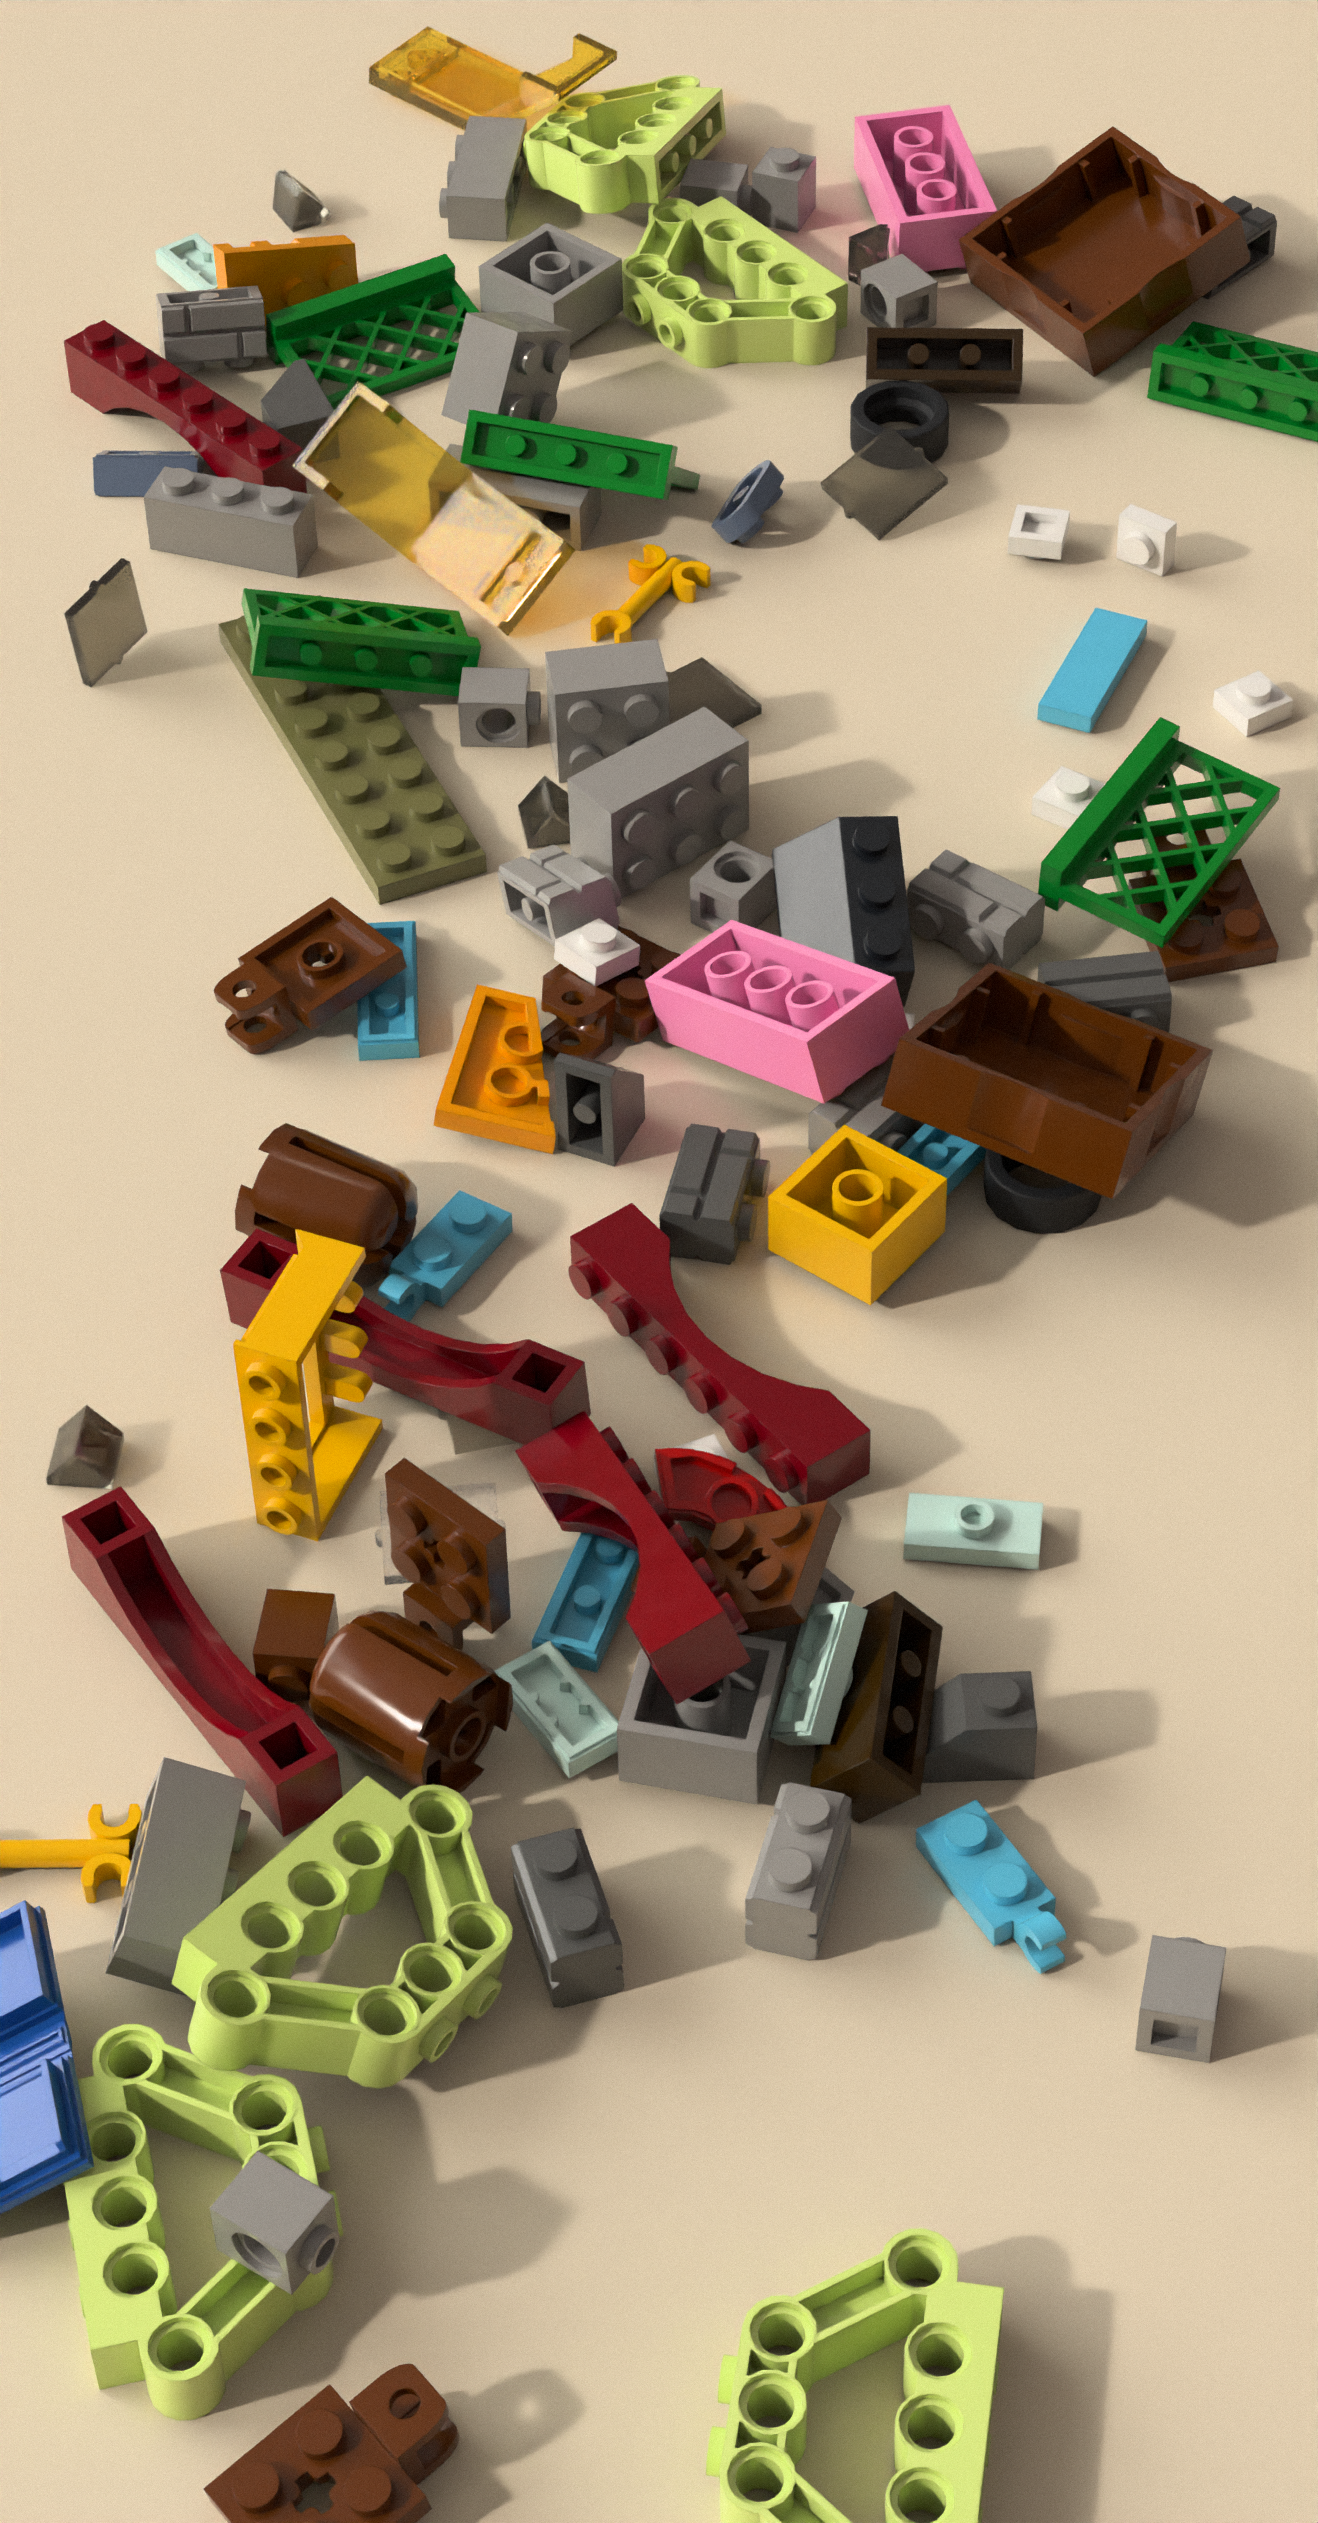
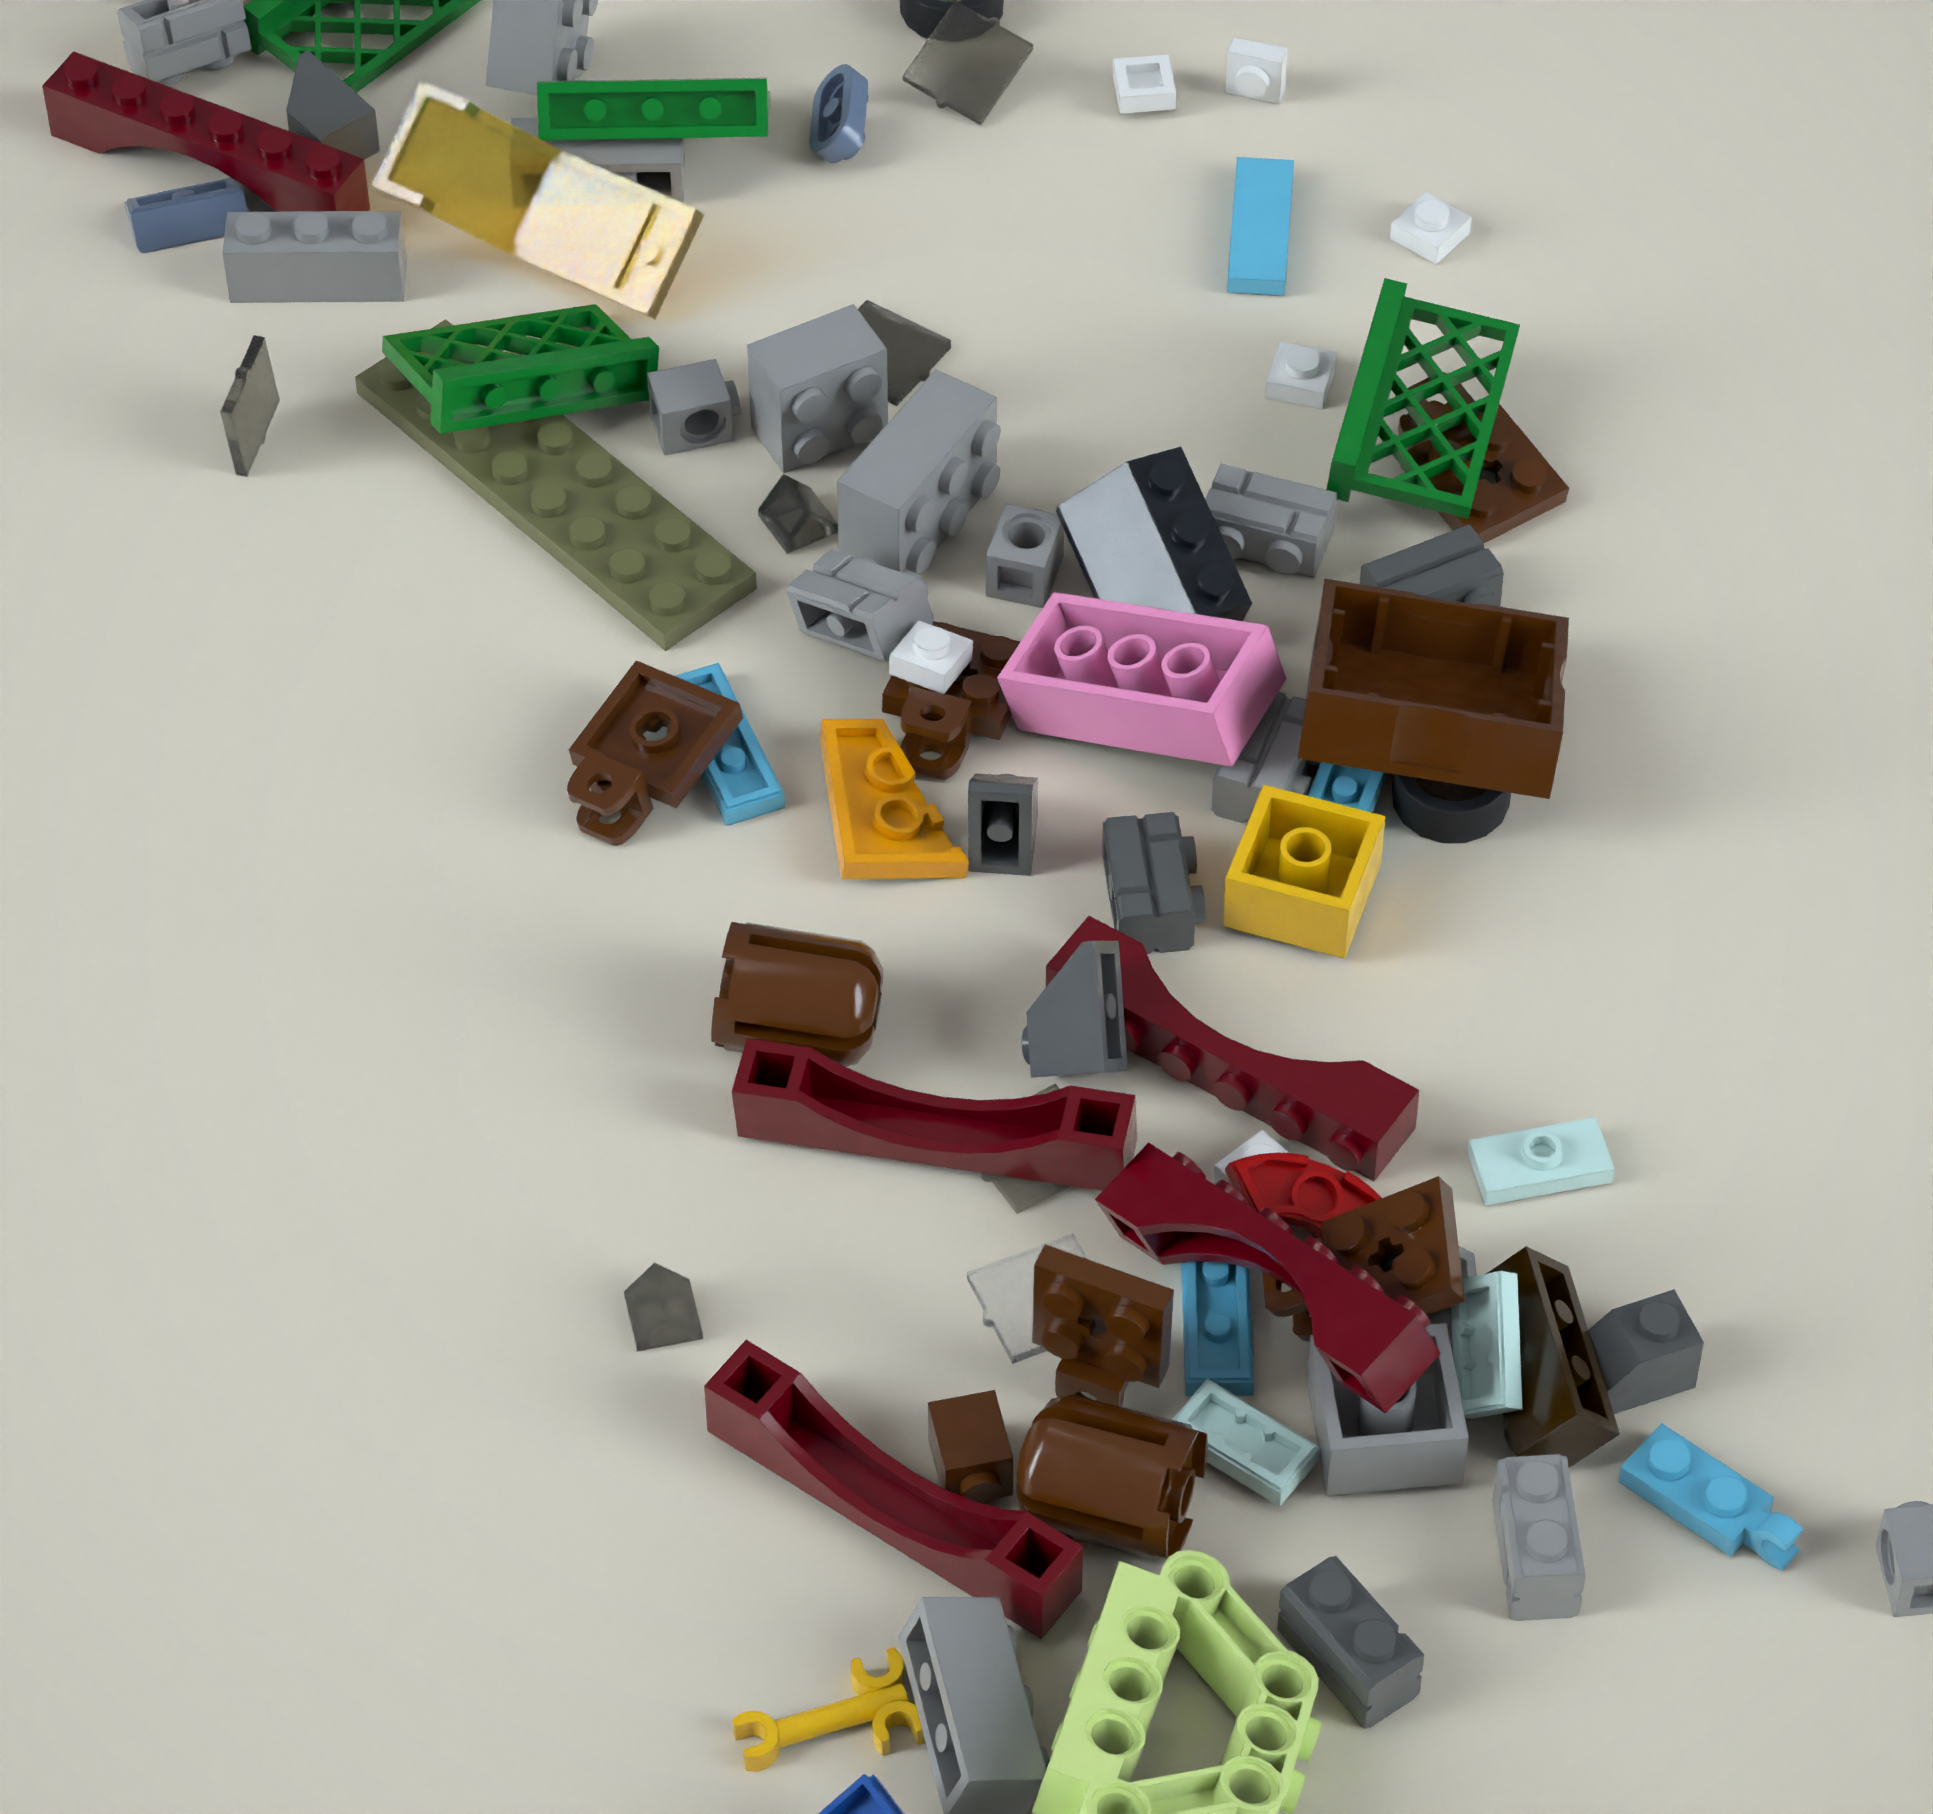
camera: 20 degrees left, 5 degrees up
(296, 1463) = (891, 1190): yellow window -> none
(444, 1254) = (915, 1010): medium azure plate -> none
(578, 1285) = (1079, 1017): none -> dark grey slope
(655, 578) = (783, 217): yellow bar -> none

